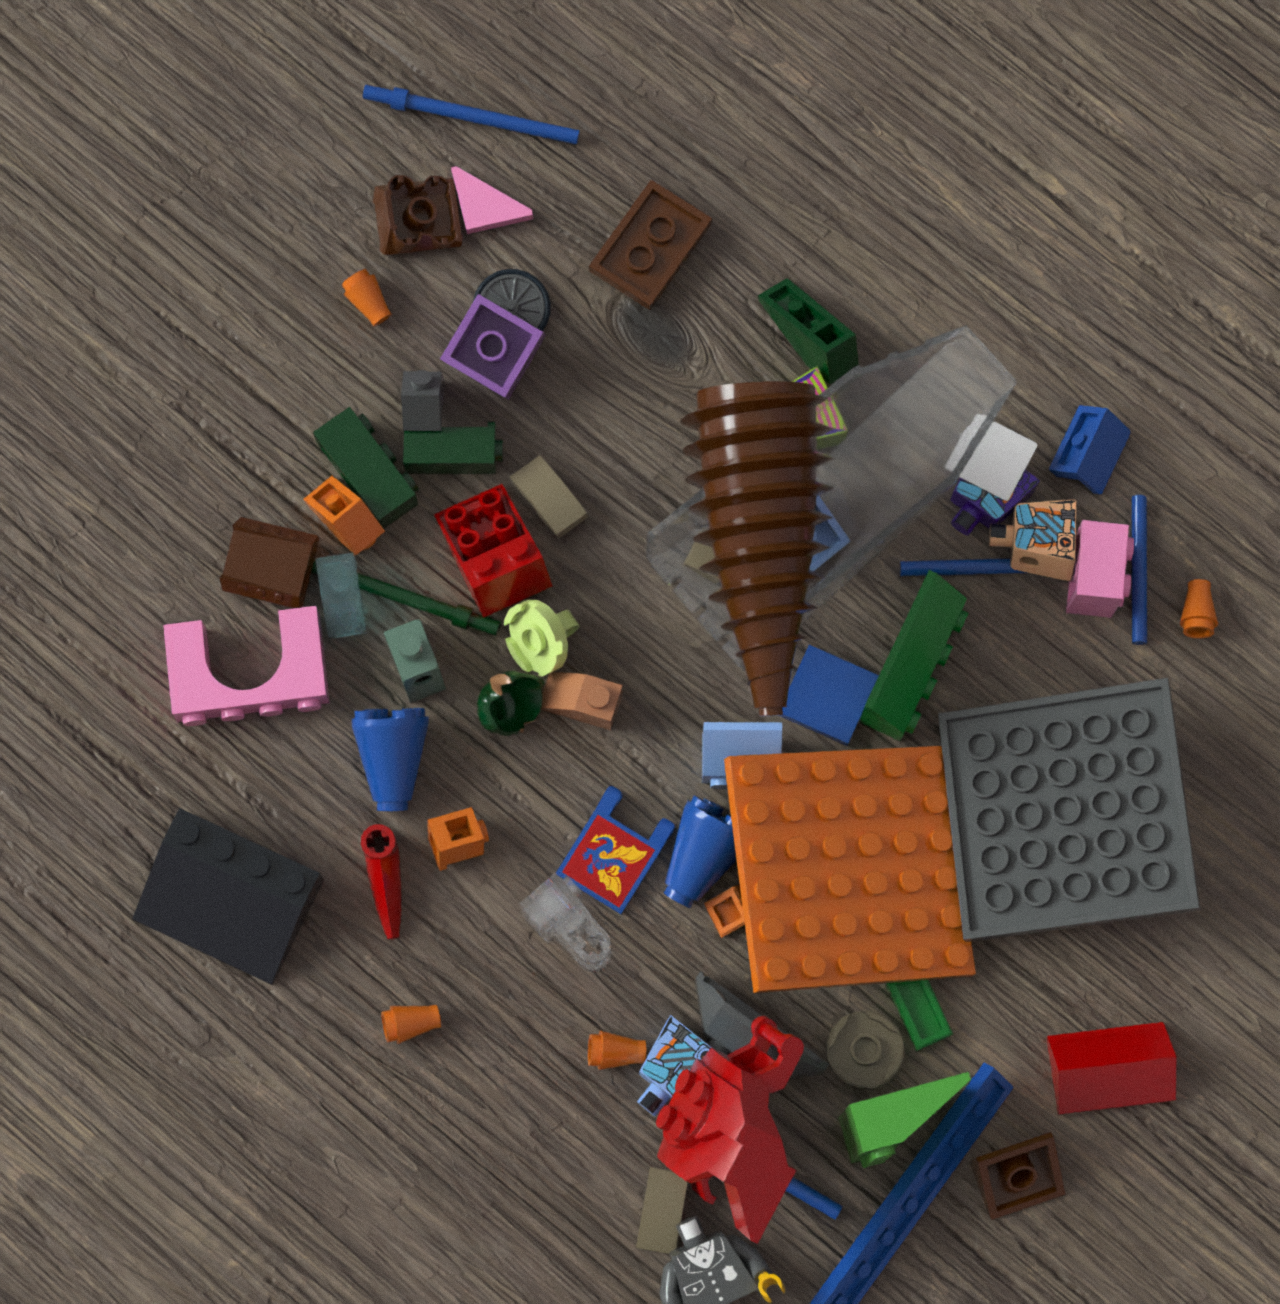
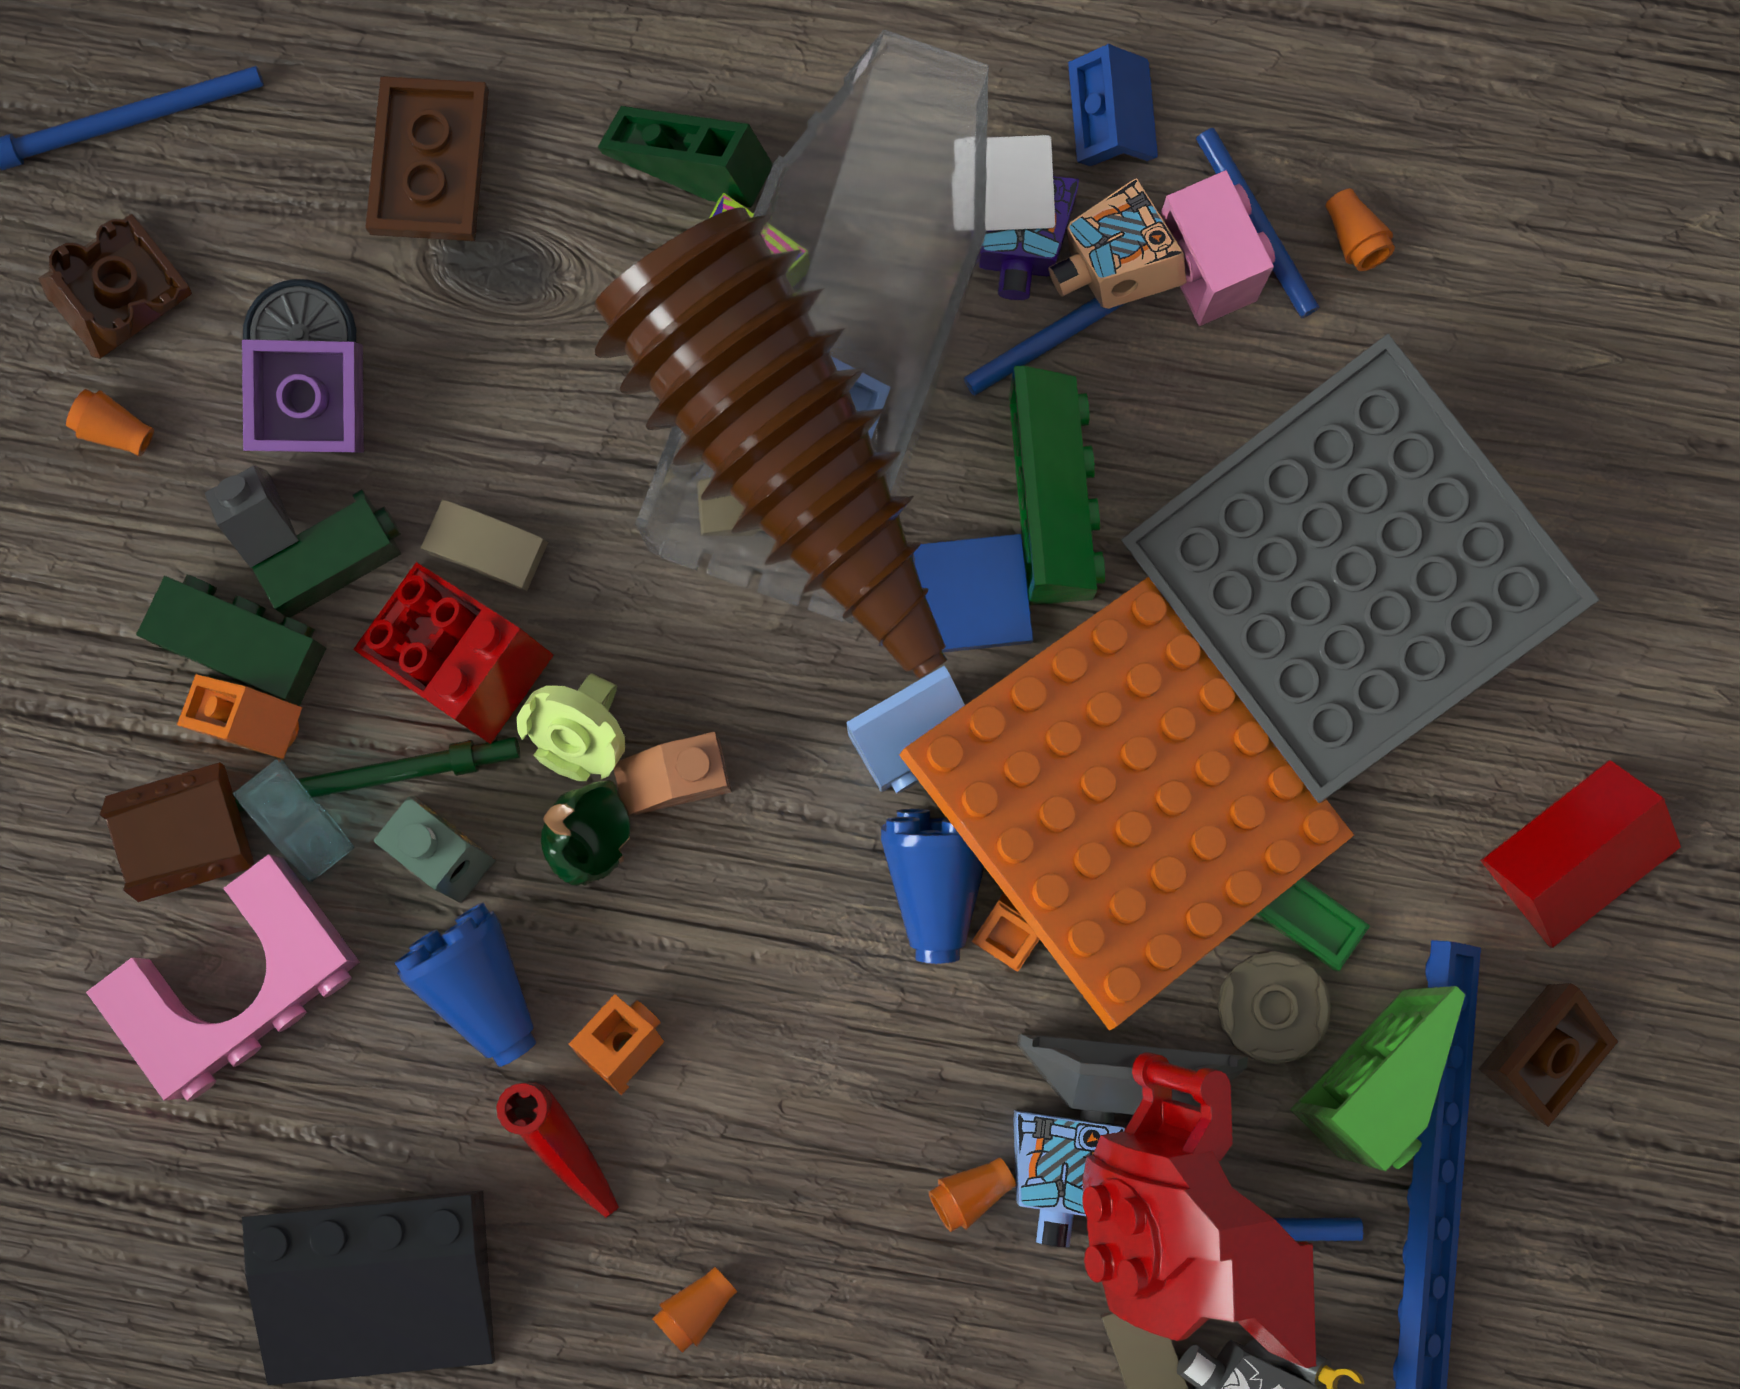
camera: 25 degrees left, 5 degrees up
(484, 205) = (193, 225): bright pink tile -> none
(558, 913) = (802, 1066): clear brick -> none
(611, 858) = (824, 952): flag -> none

